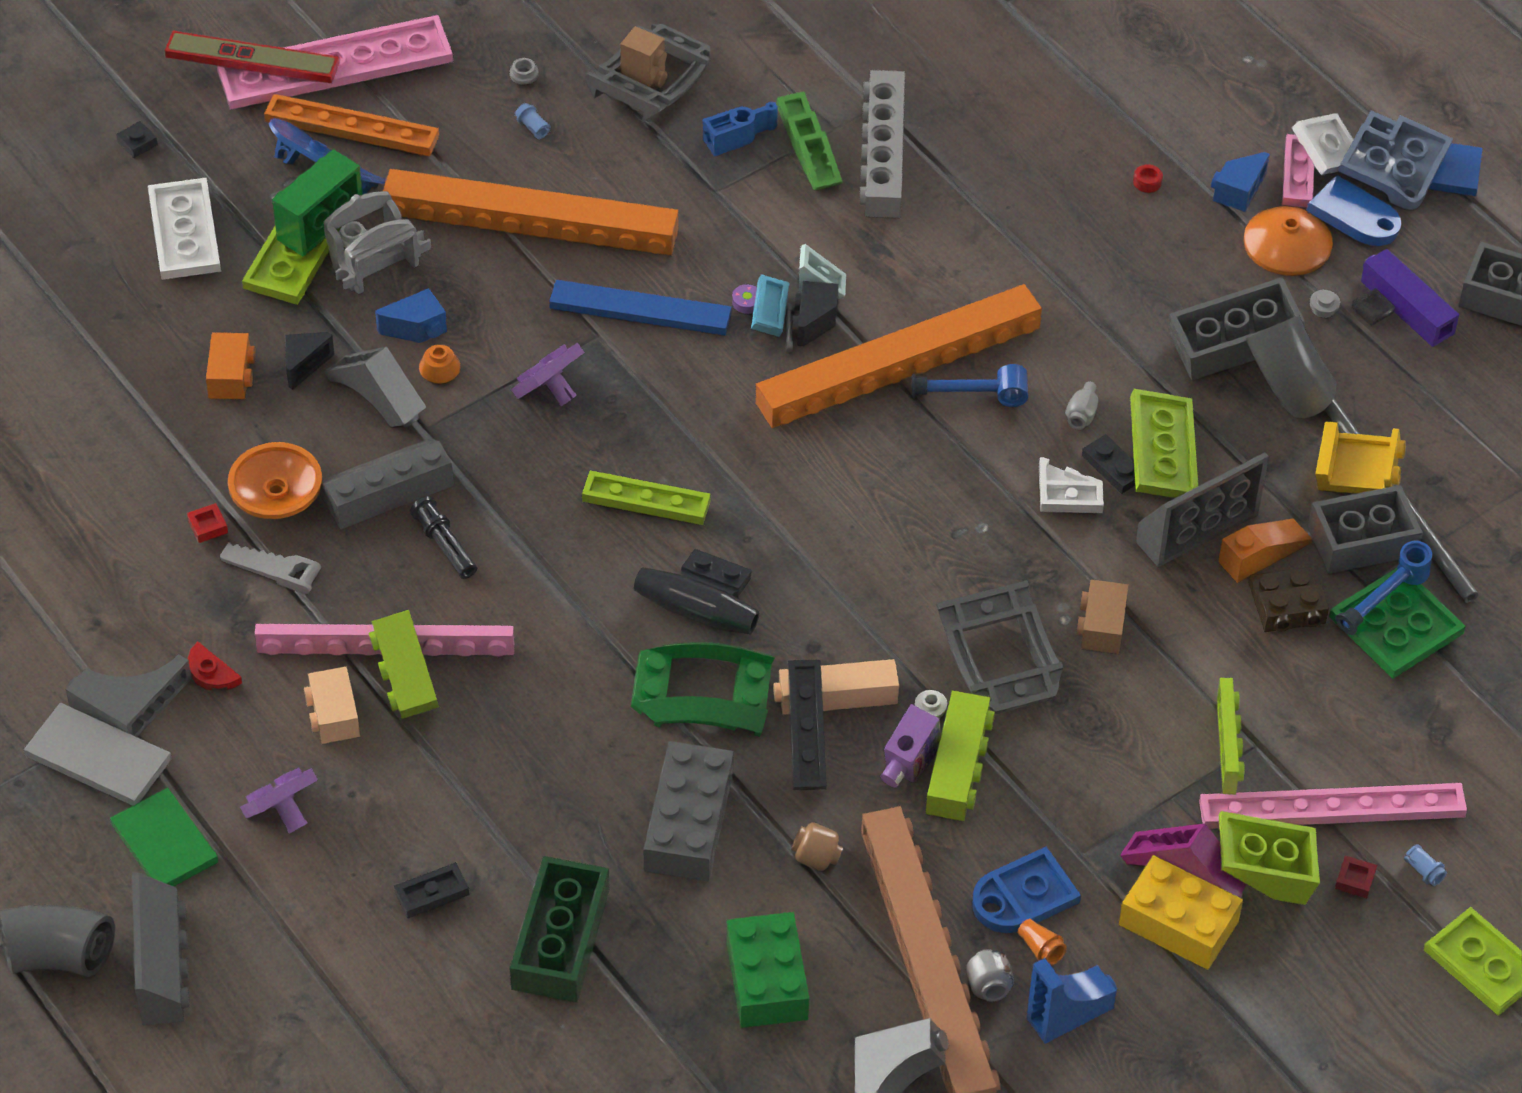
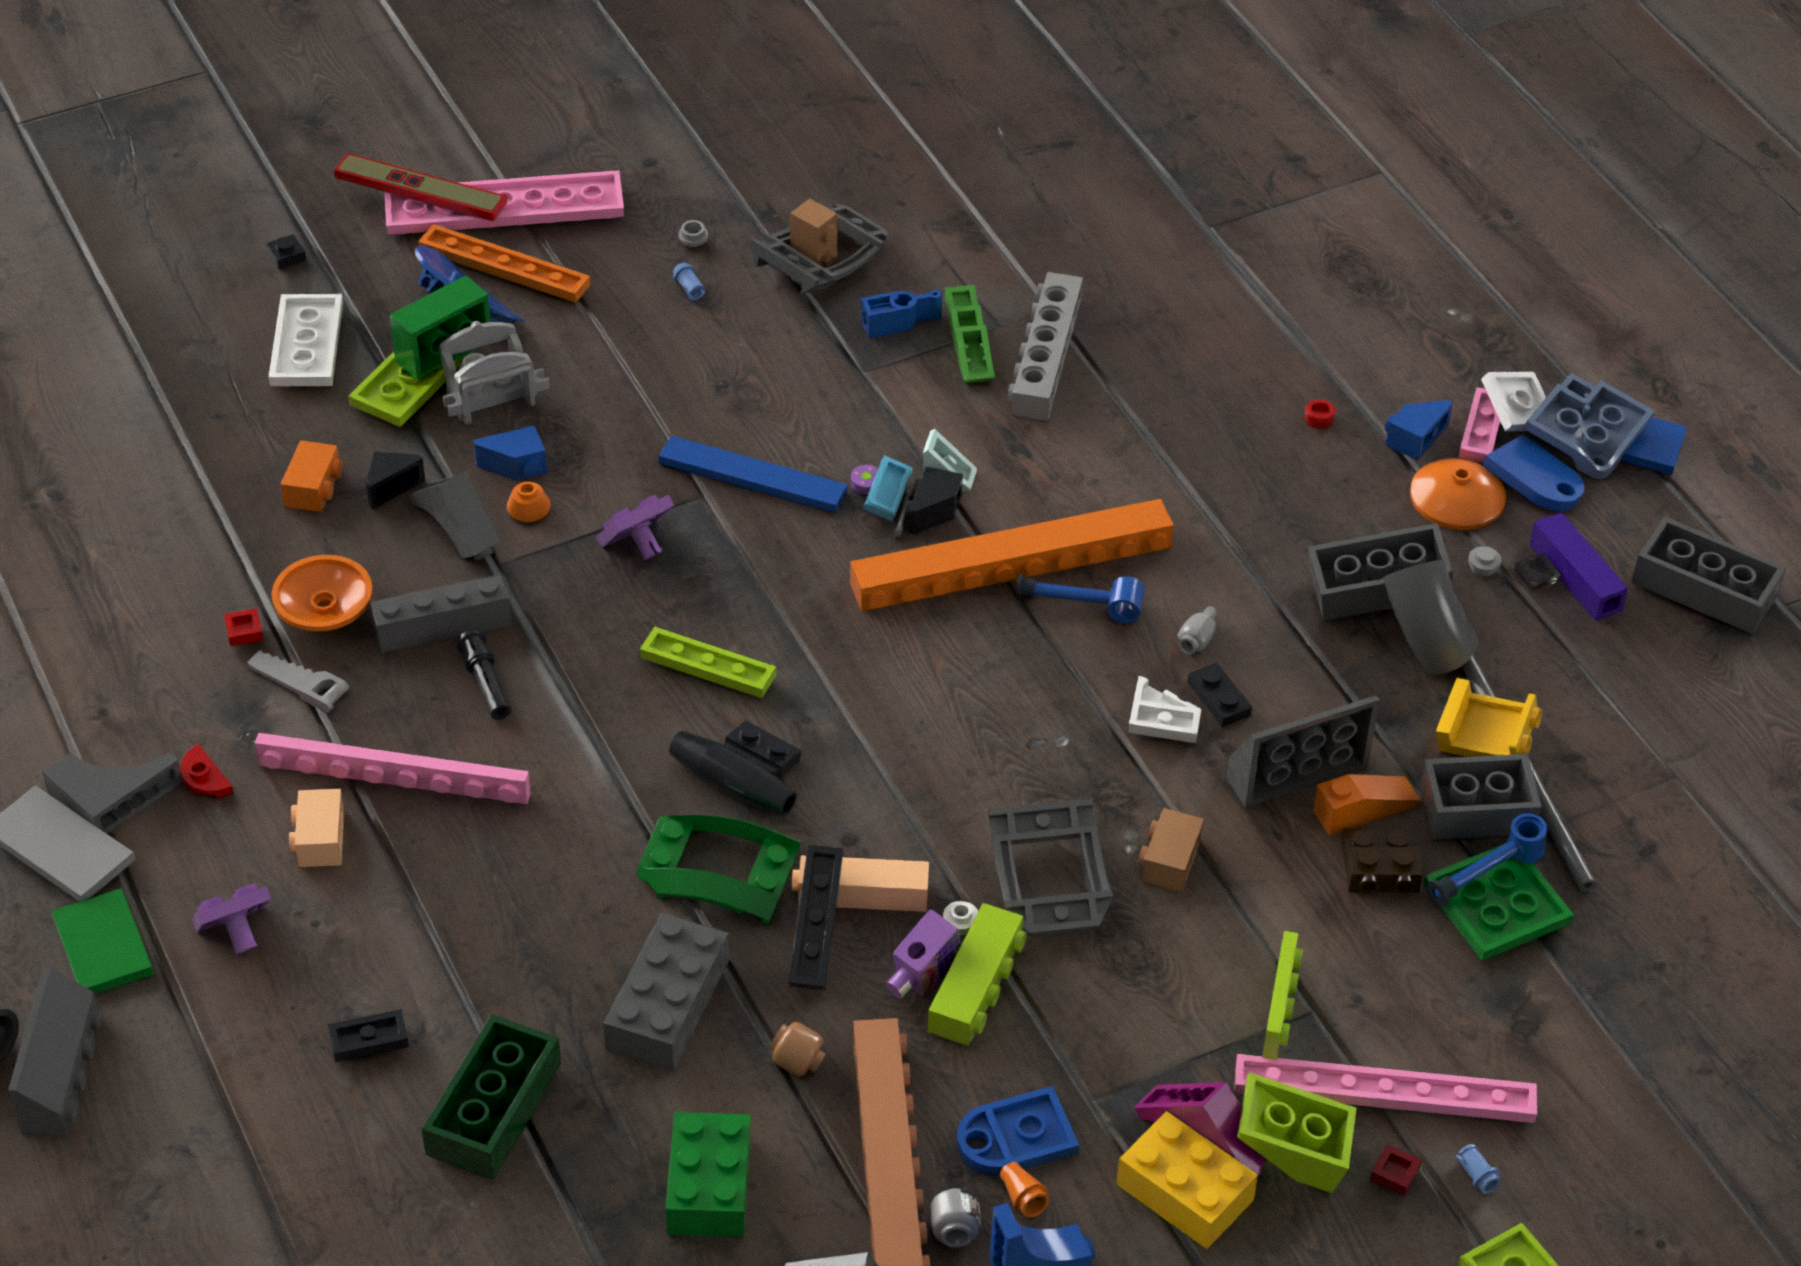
camera: 10 degrees right, 5 degrees down
(403, 664) = (400, 795): lime brick -> none
(533, 212) = (665, 367): orange brick -> none
(1163, 443) = (1276, 676): lime plate -> none

